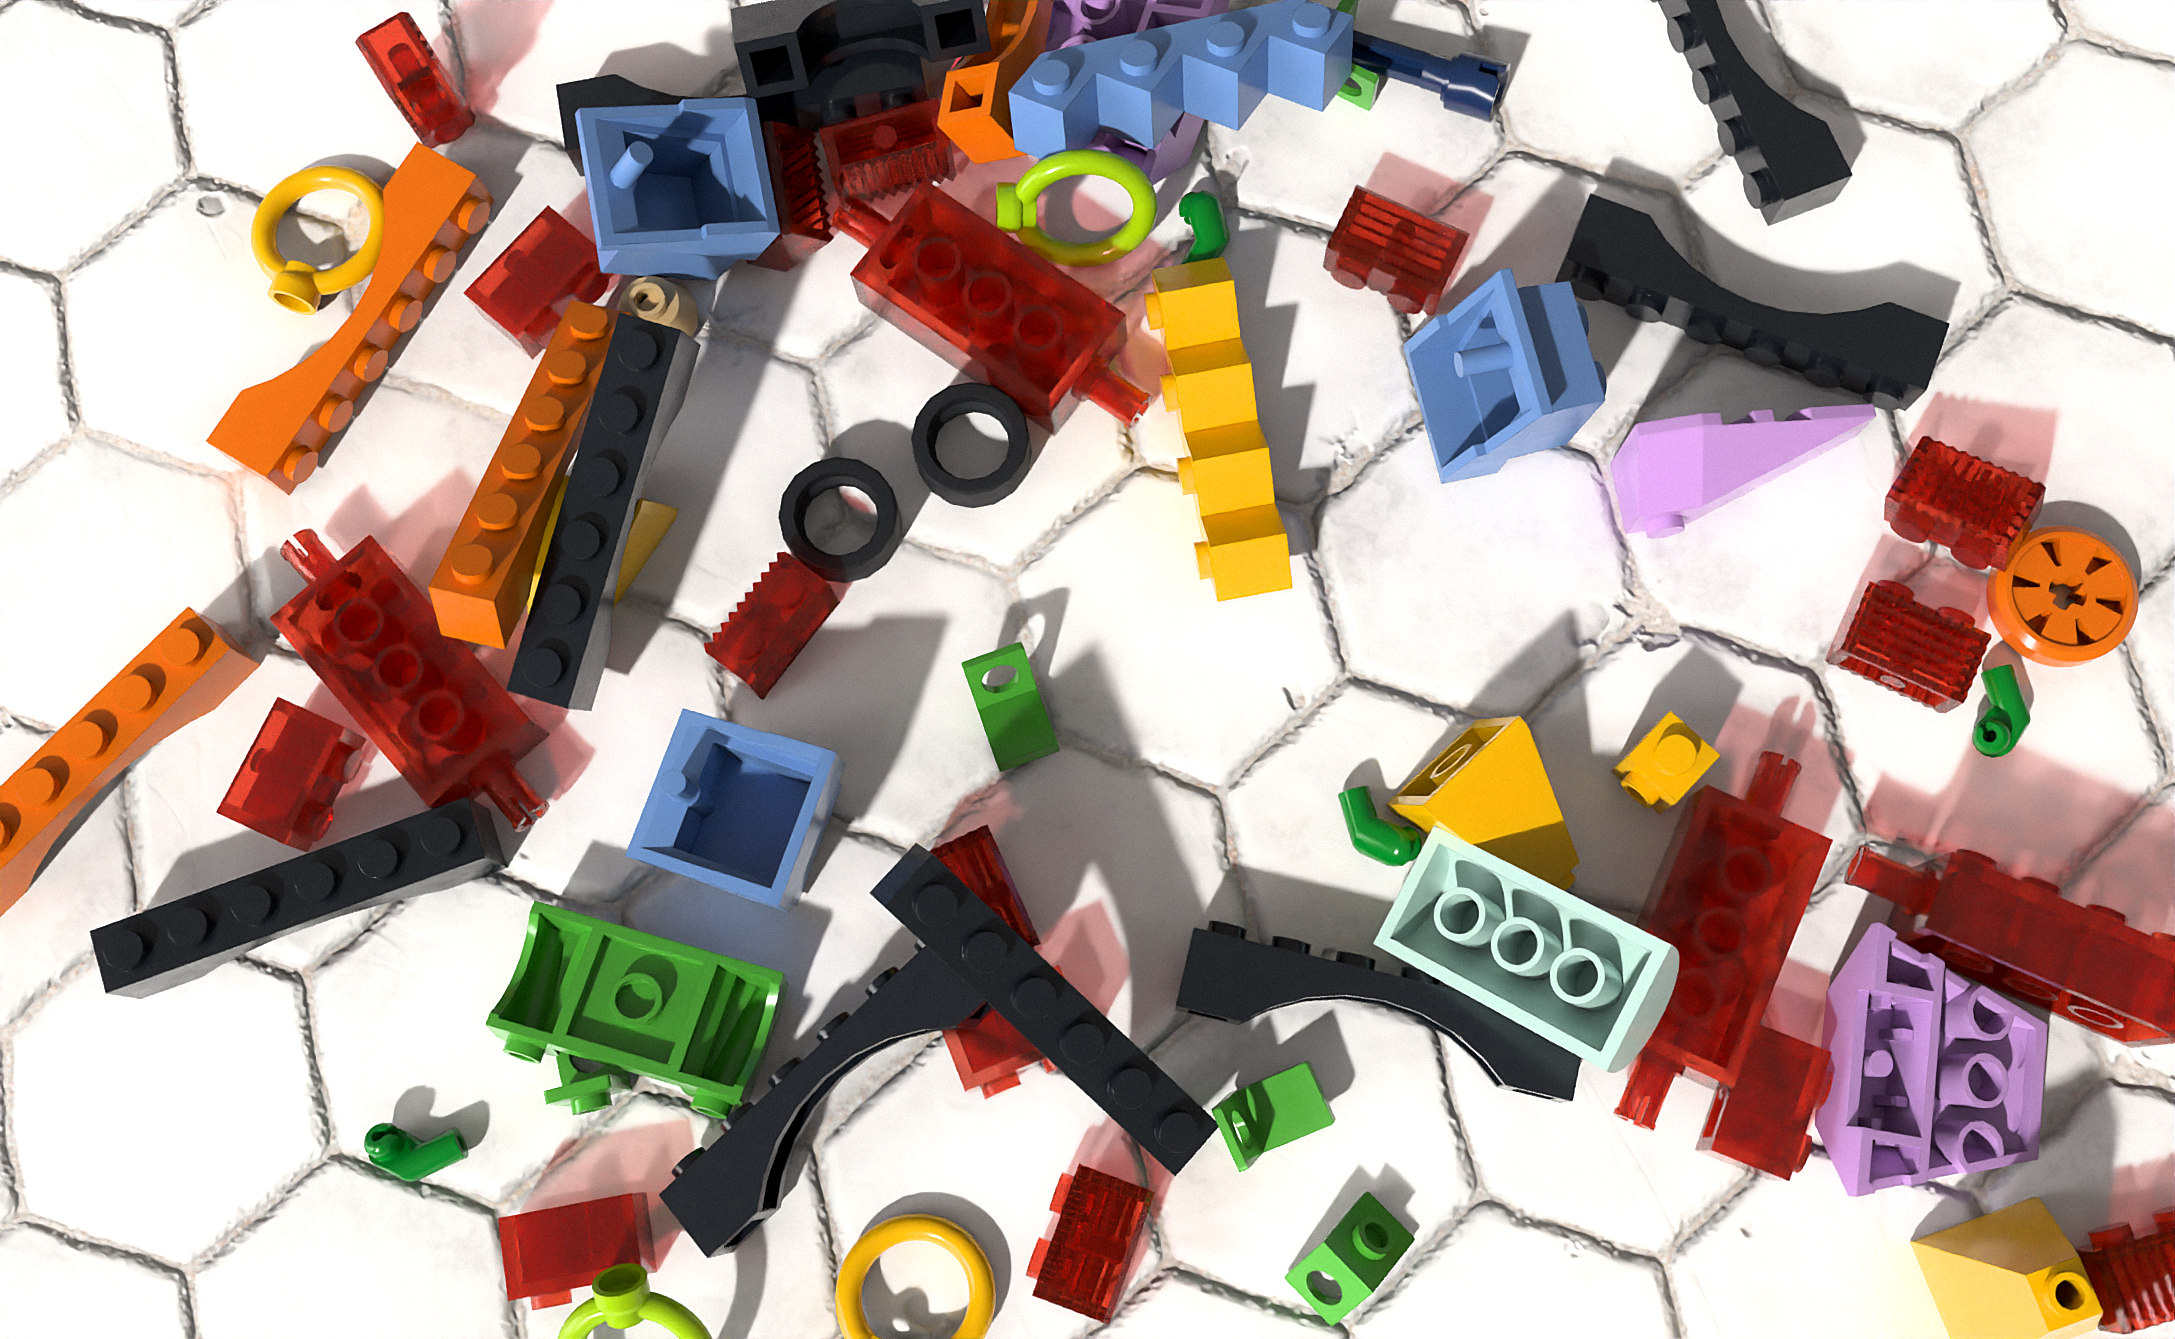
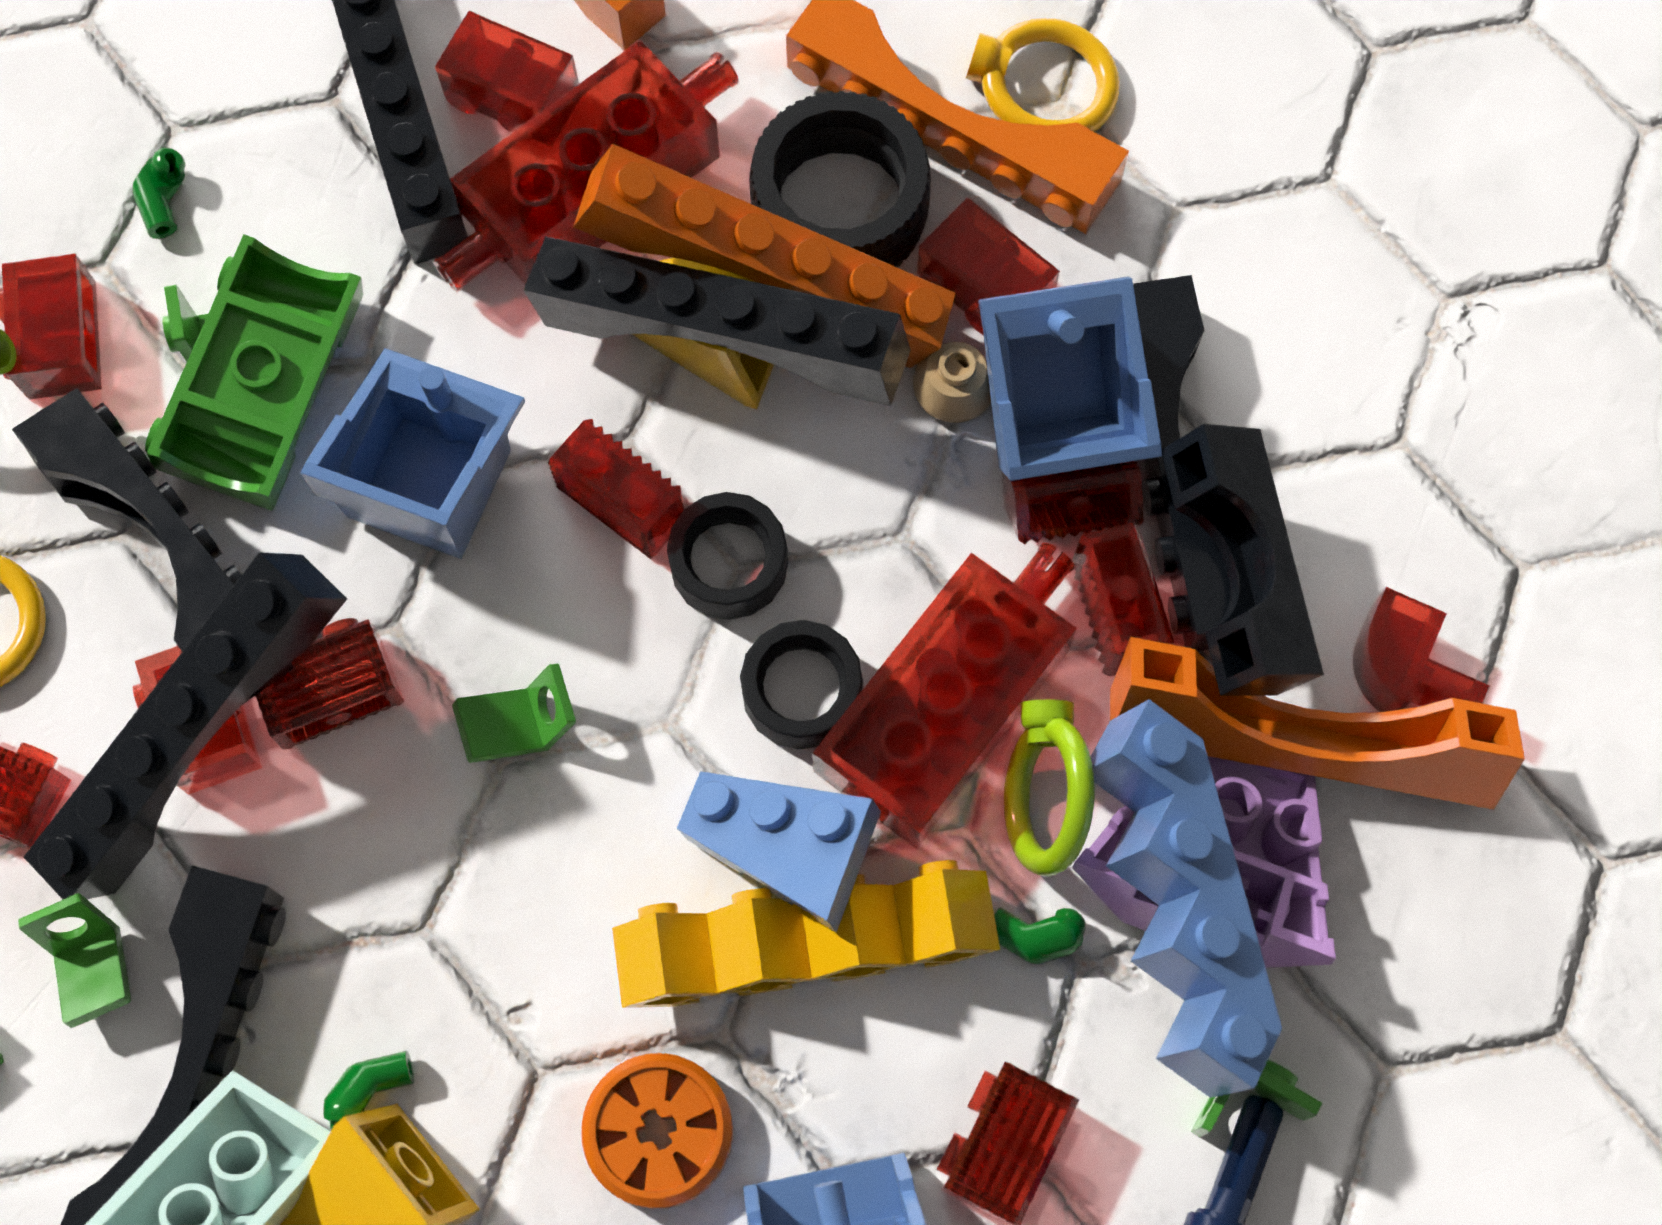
camera: 85 degrees right, 5 degrees down
(396, 373) = (848, 126): none -> black tyre
(416, 80) = (1192, 147): clear red brick -> none
(1128, 441) = (785, 837): none -> medium blue wing
(1411, 522) = (640, 1170): none -> orange wheel

